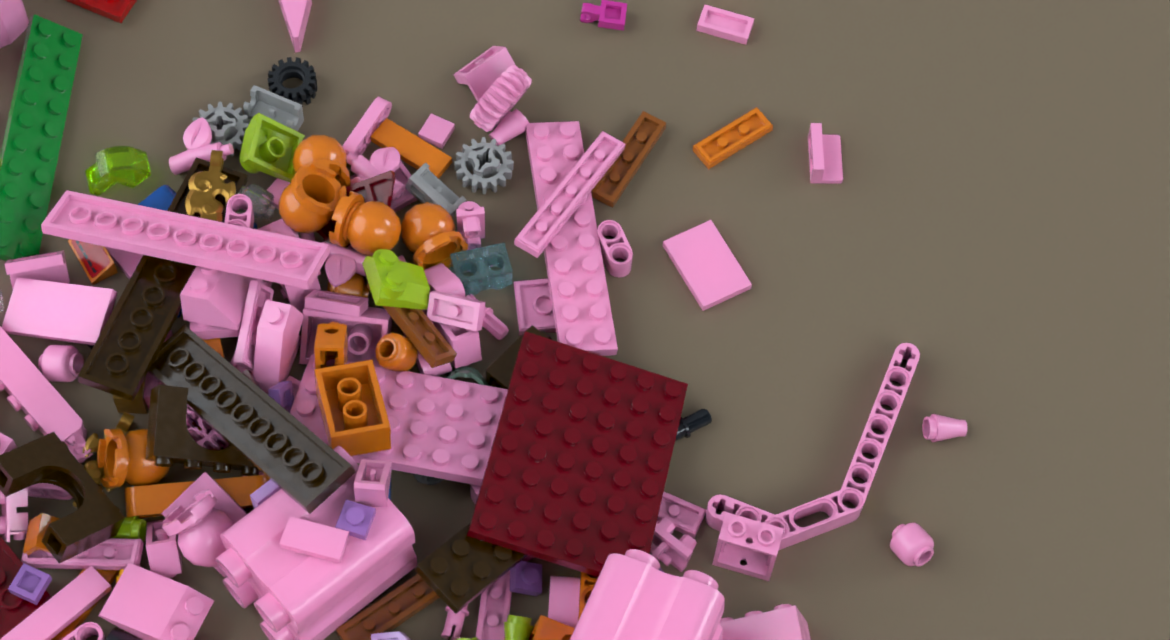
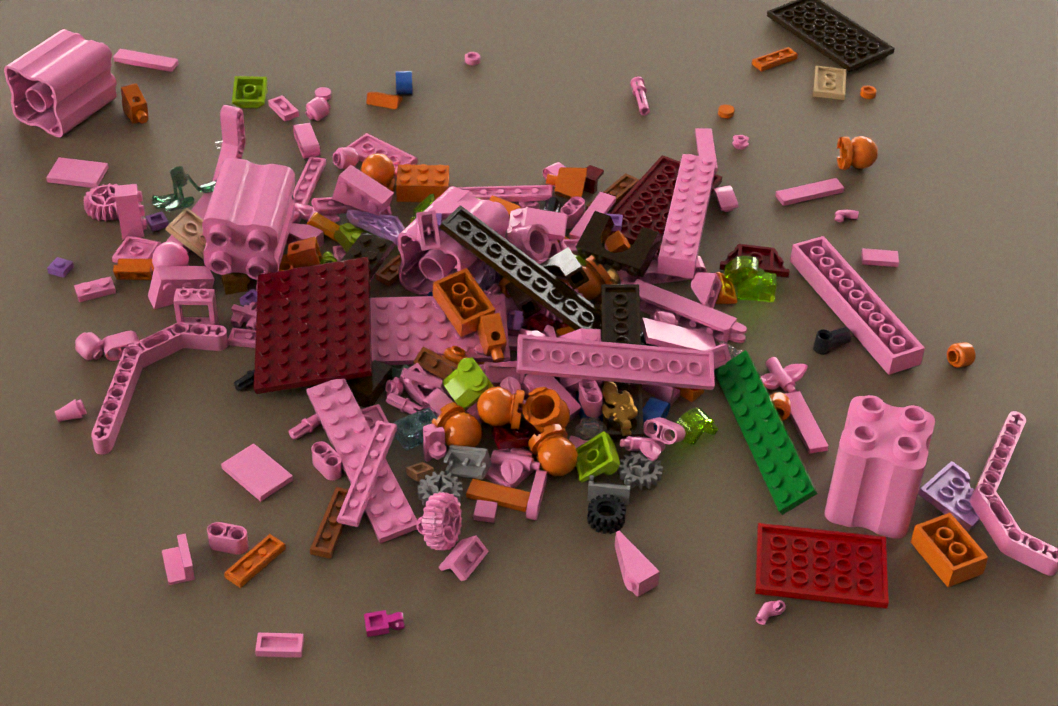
camera: 165 degrees right, 20 degrees down
(165, 160) = (663, 431): none -> bright pink beam
(491, 347) = (394, 386): none -> bright pink plate
(499, 201) = (419, 471): none -> medium nougat plate
(628, 318) = (306, 425): none -> bright pink axle
(762, 163) = (227, 538): none -> bright pink beam
(864, 536) = (115, 344): none -> bright pink beam

